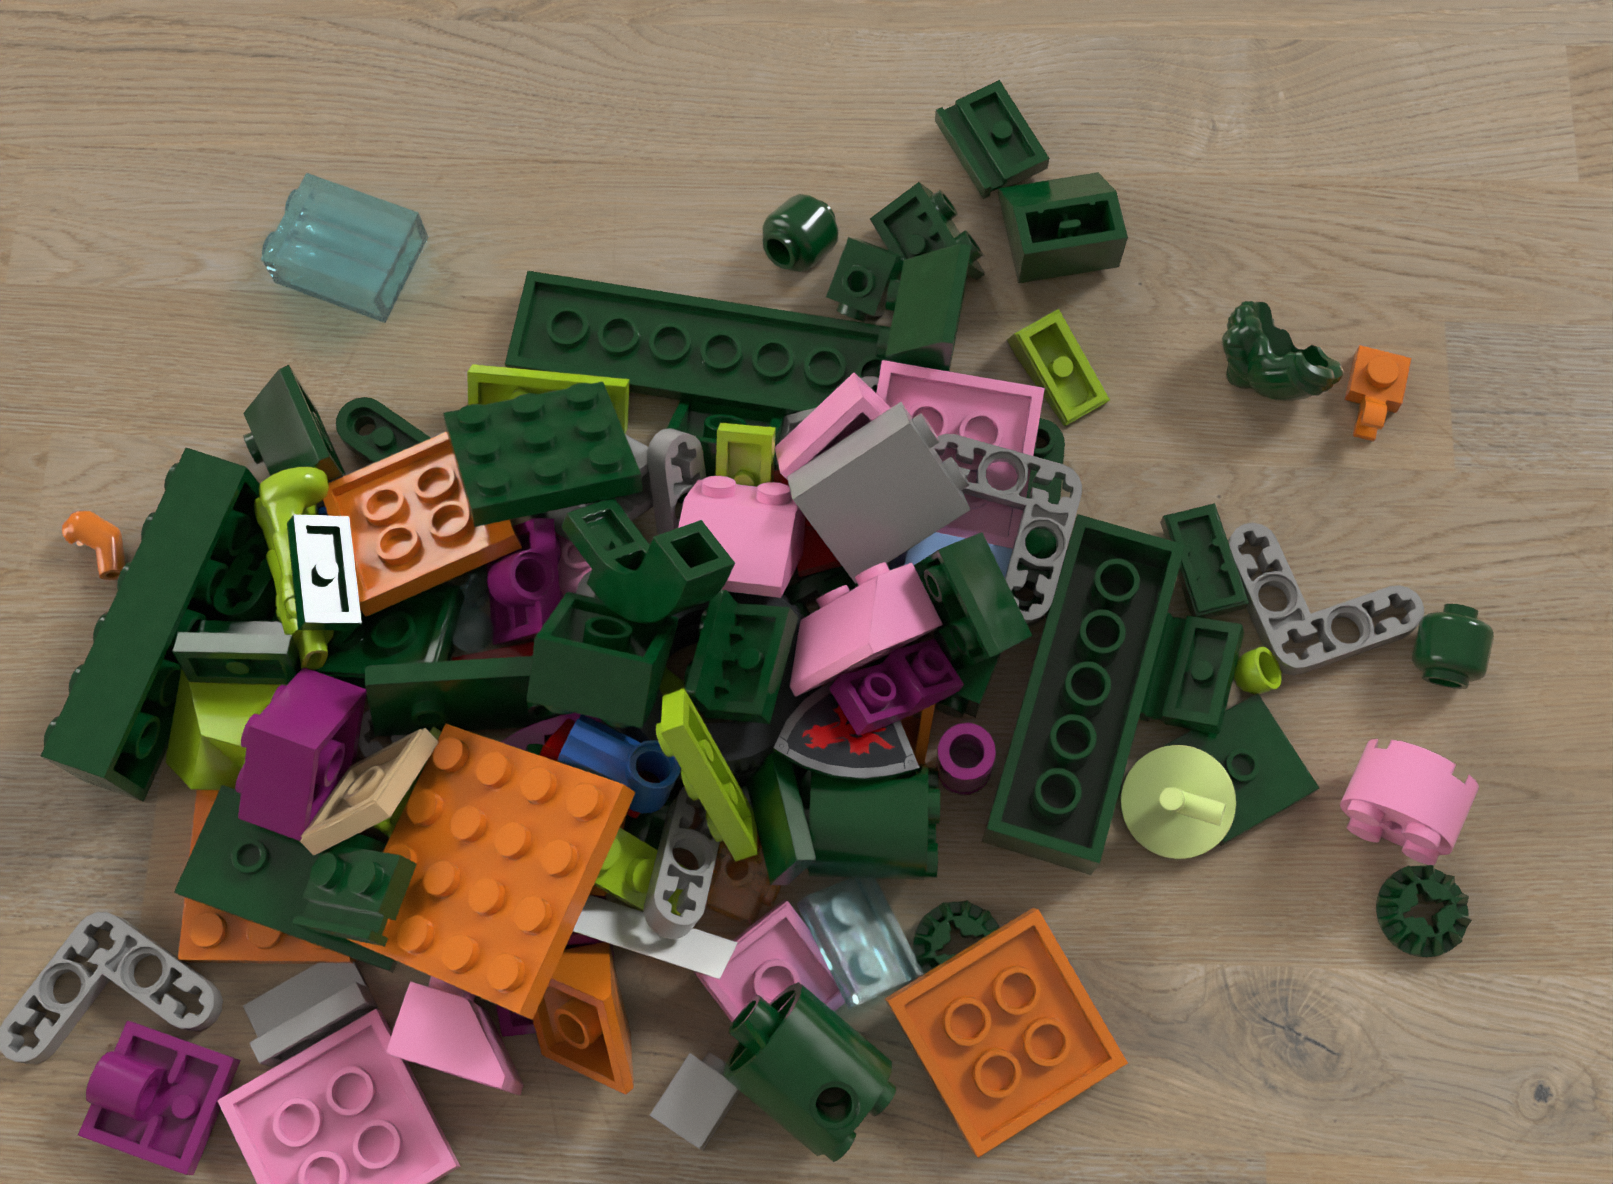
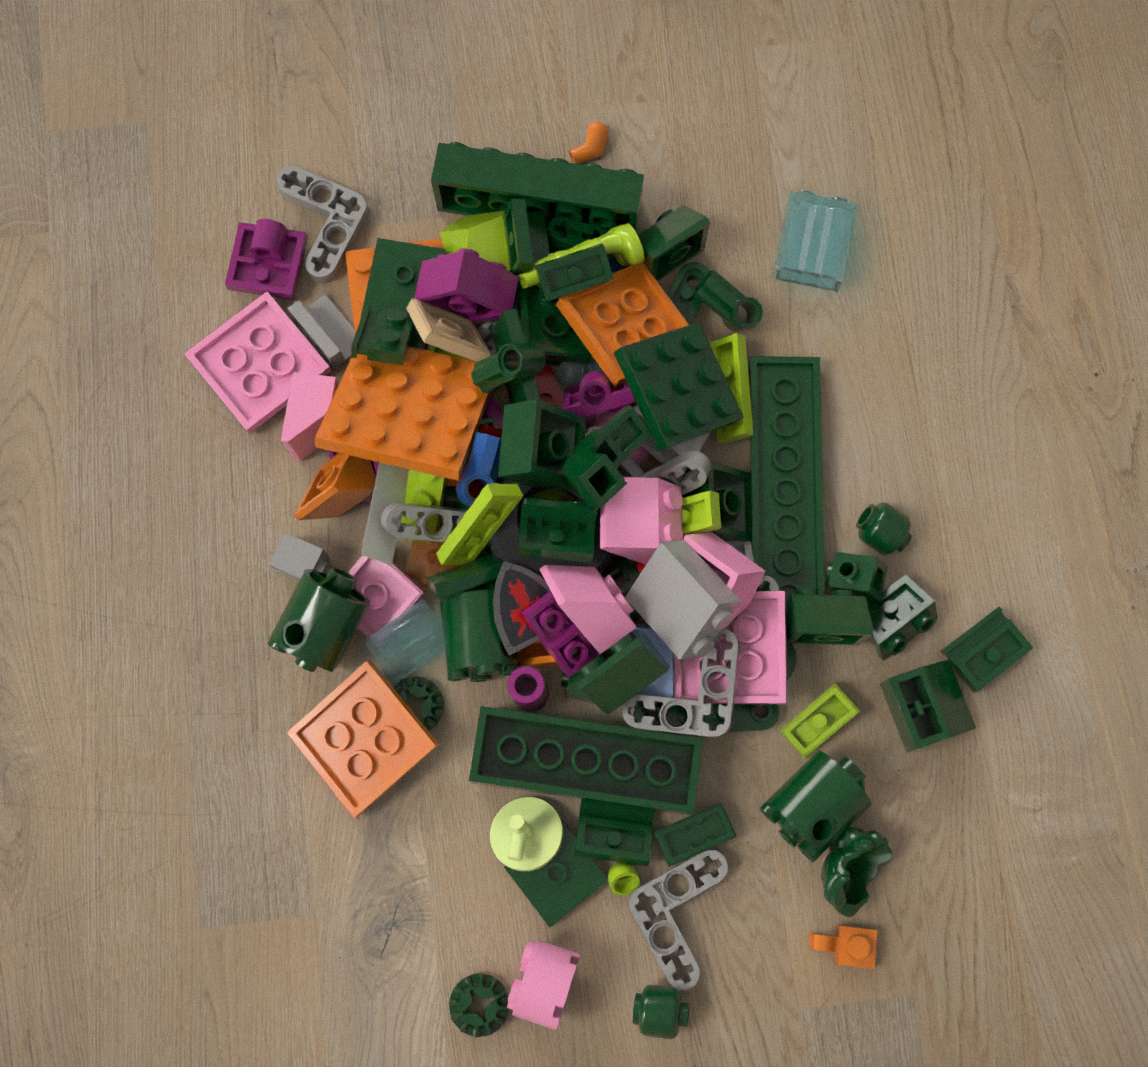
camera: 80 degrees right, 5 degrees up
(415, 376) = (725, 301): none -> dark green piece
(461, 692) = (508, 365): none -> dark green piece
(1184, 381) = (818, 803): none -> dark green cylinder

